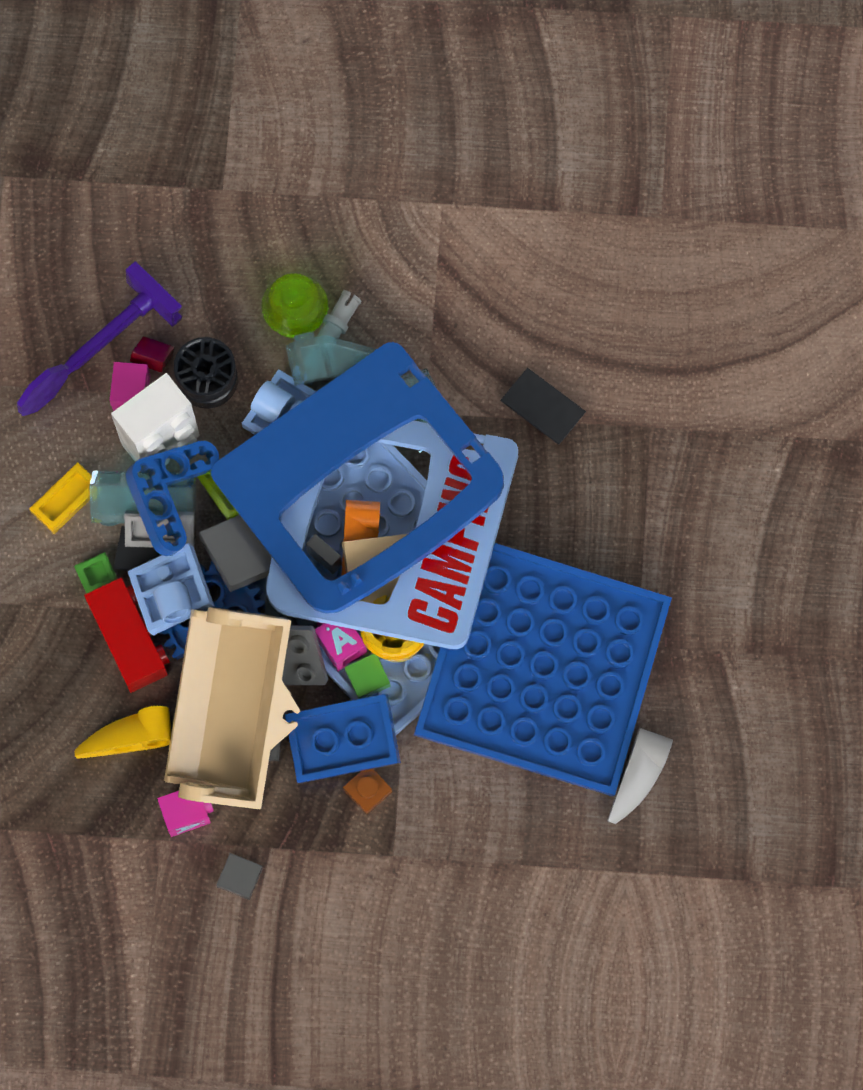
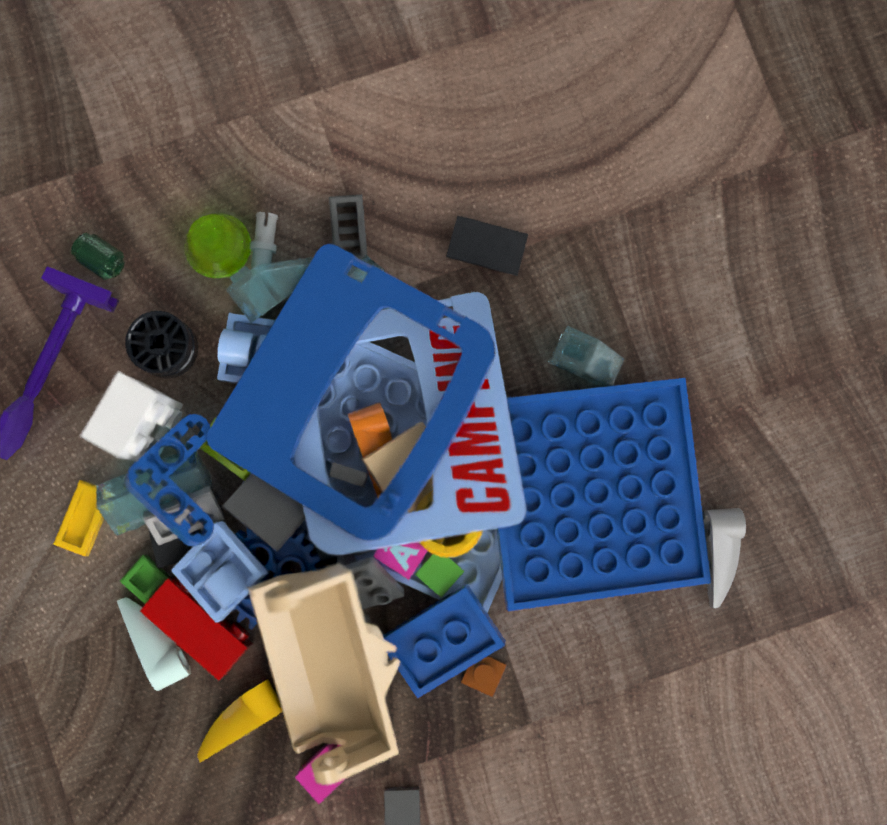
camera: 30 degrees left, 10 degrees up
(81, 635) = (158, 653): none -> light aqua piece
(127, 381) = (91, 385): dark pink brick -> none
(152, 353) = (104, 347): dark red tile -> none
(182, 271) = (98, 256): none -> clear green brick
(429, 313) = (348, 201): none -> dark grey slope
(589, 542) = (586, 357): none -> clear light blue slope

